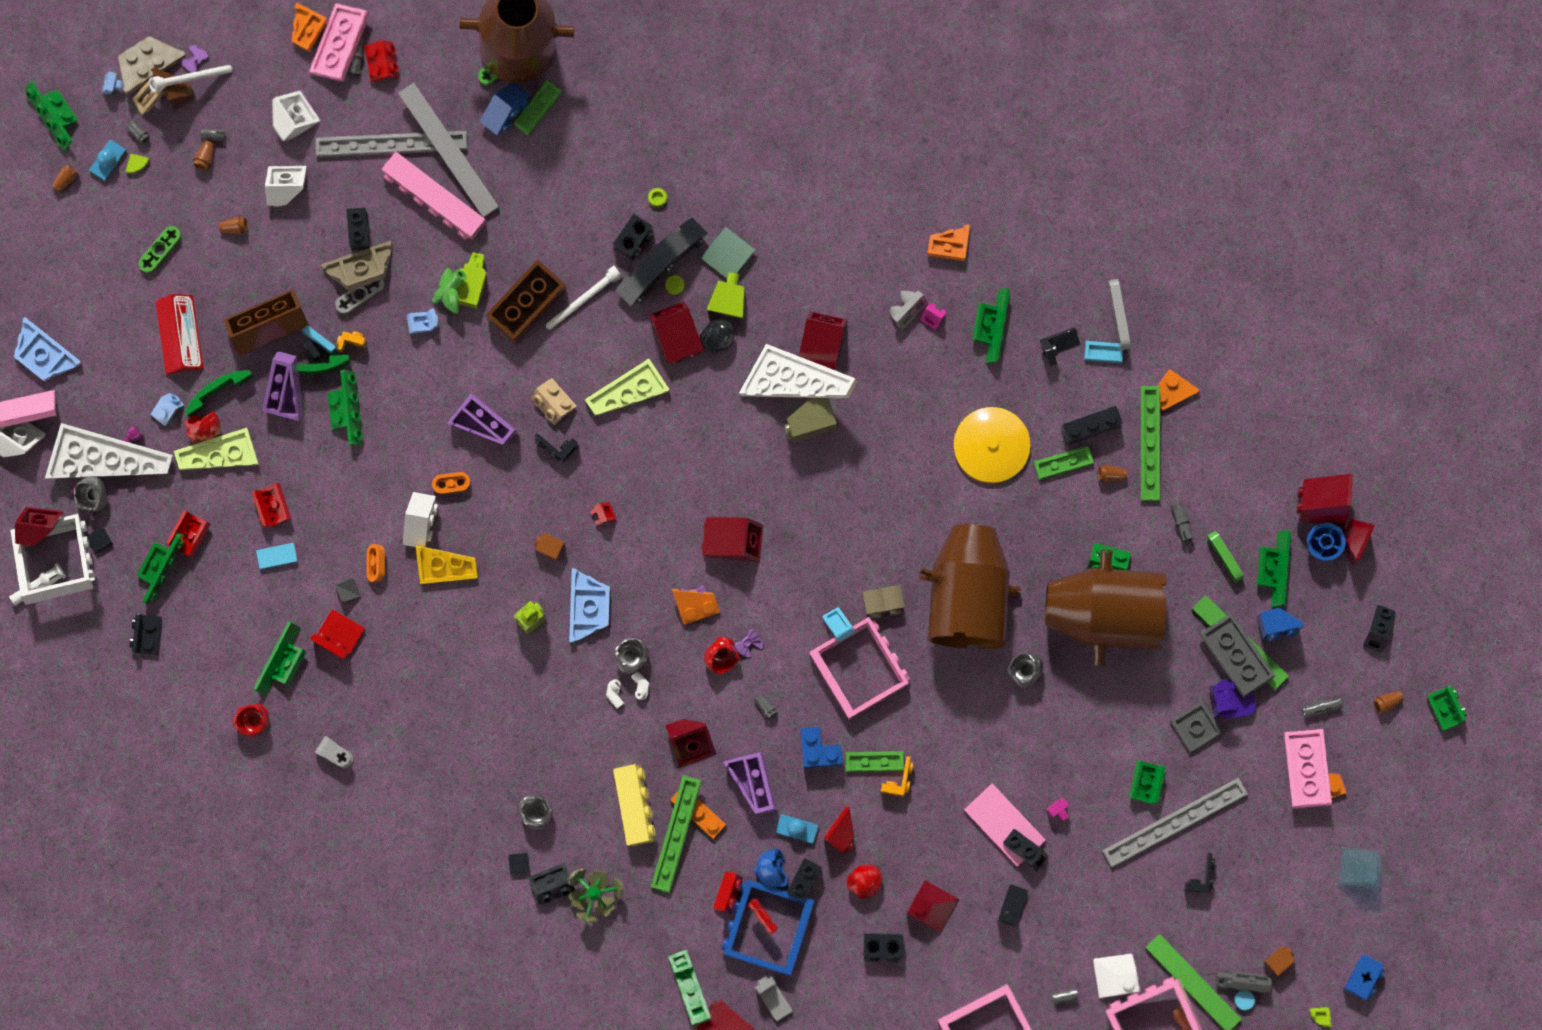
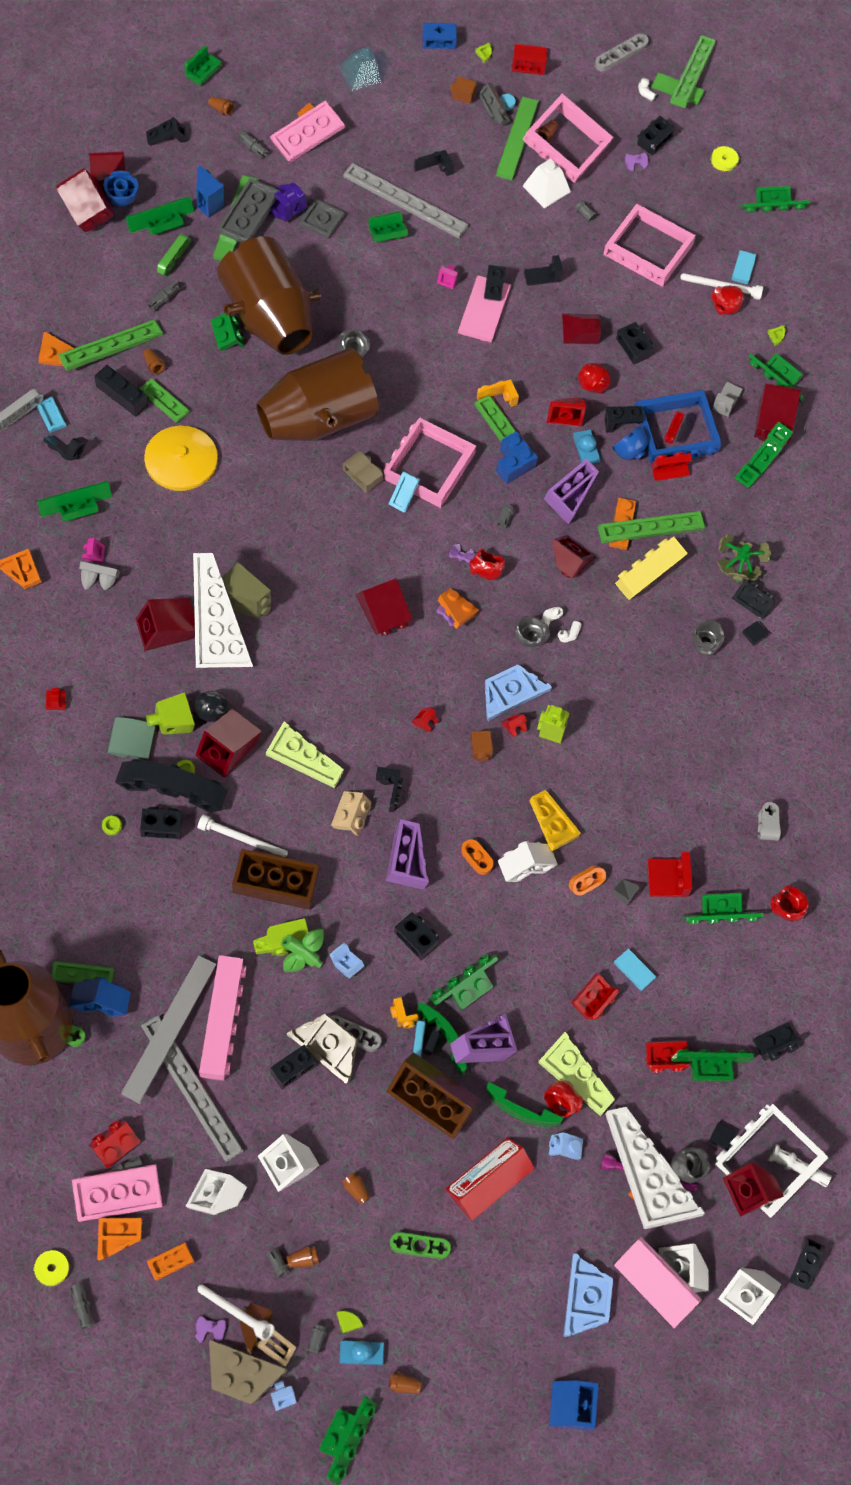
camera: 130 degrees left, 15 degrees down
(262, 55) = (170, 1261): none -> orange plate
(410, 385) = (412, 938): none -> black brick
(556, 589) = (513, 722): none -> red tile
(803, 210) = (55, 699): none -> red tile

